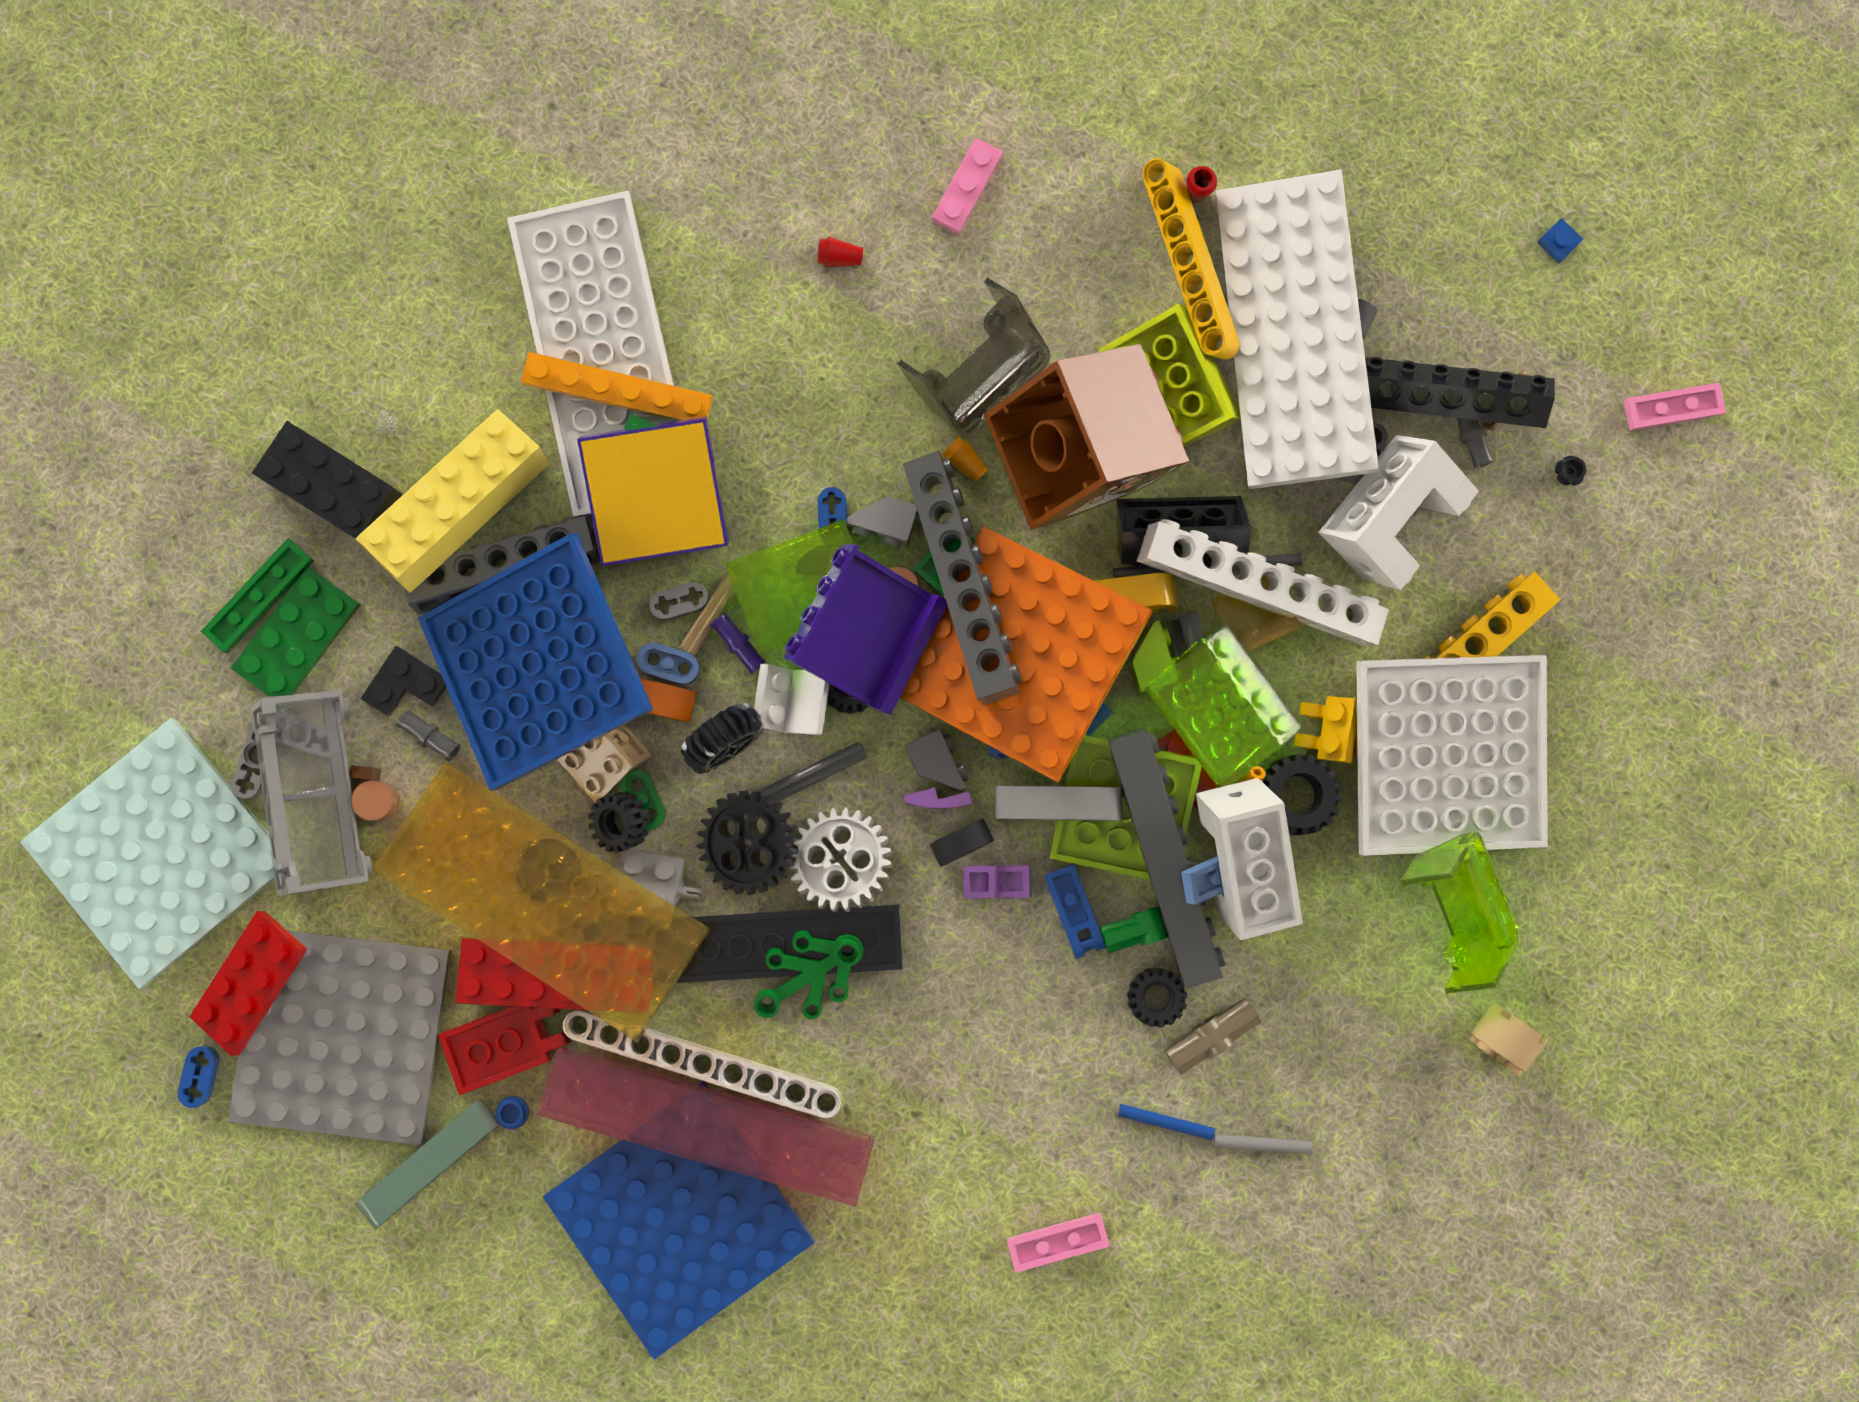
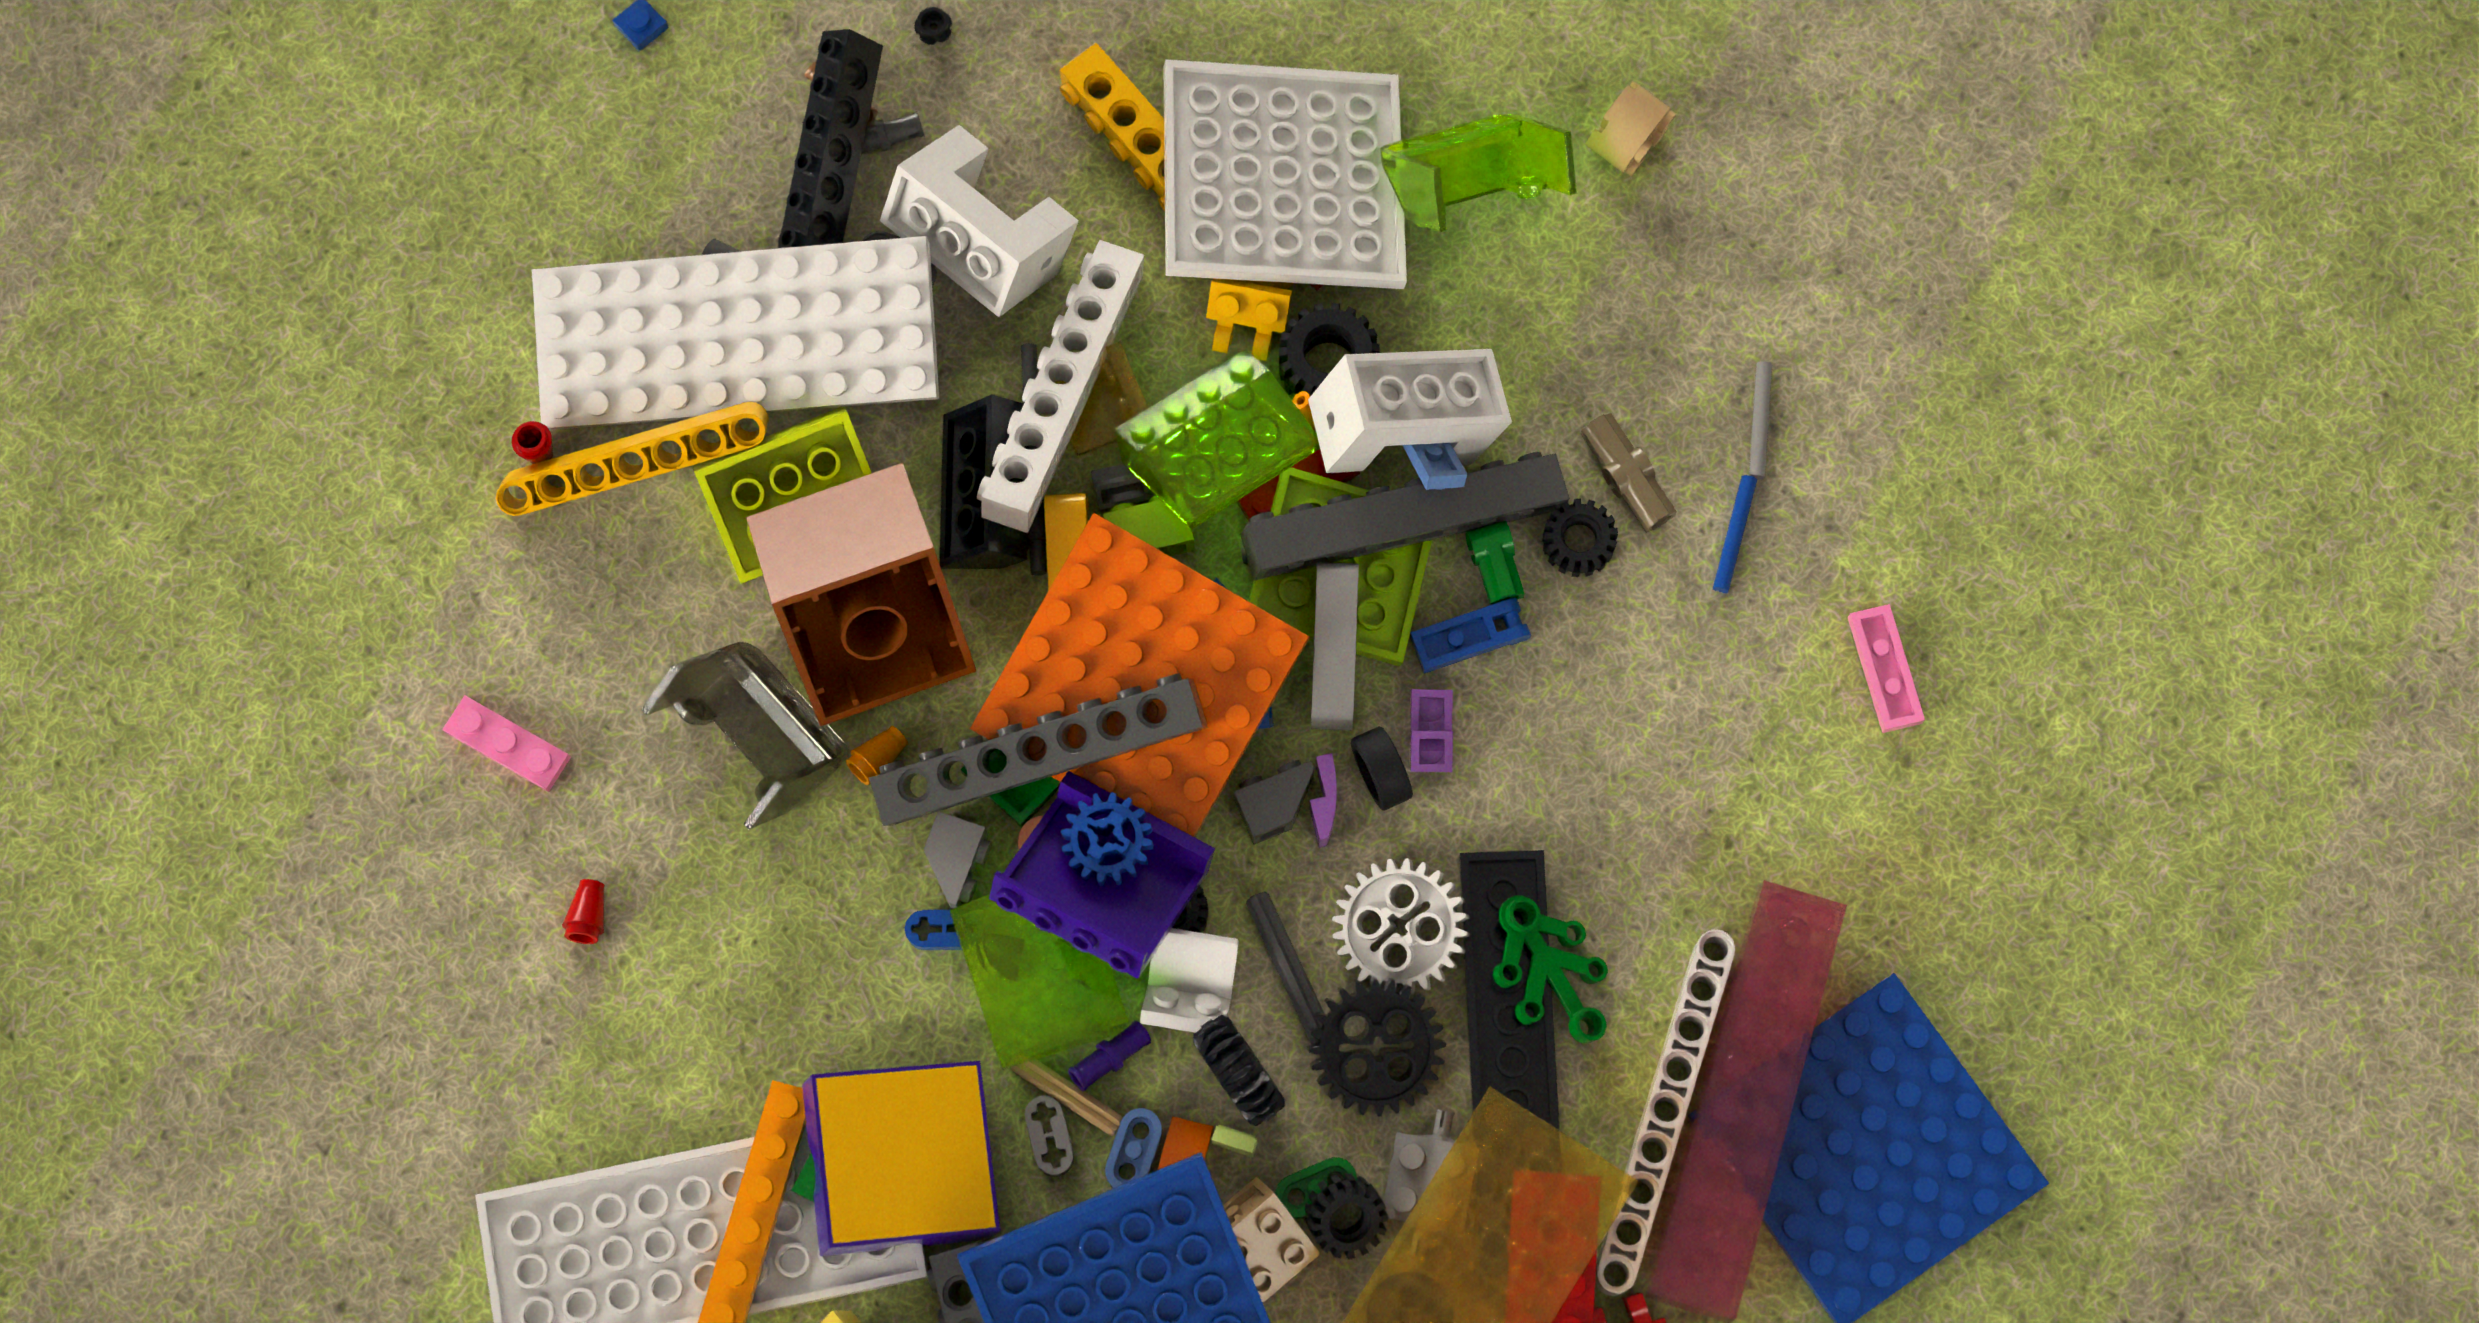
camera: 85 degrees left, 10 degrees down
(675, 737) = (1234, 1140): none -> yellowish green tile
(880, 624) = (1117, 823): none -> blue gear

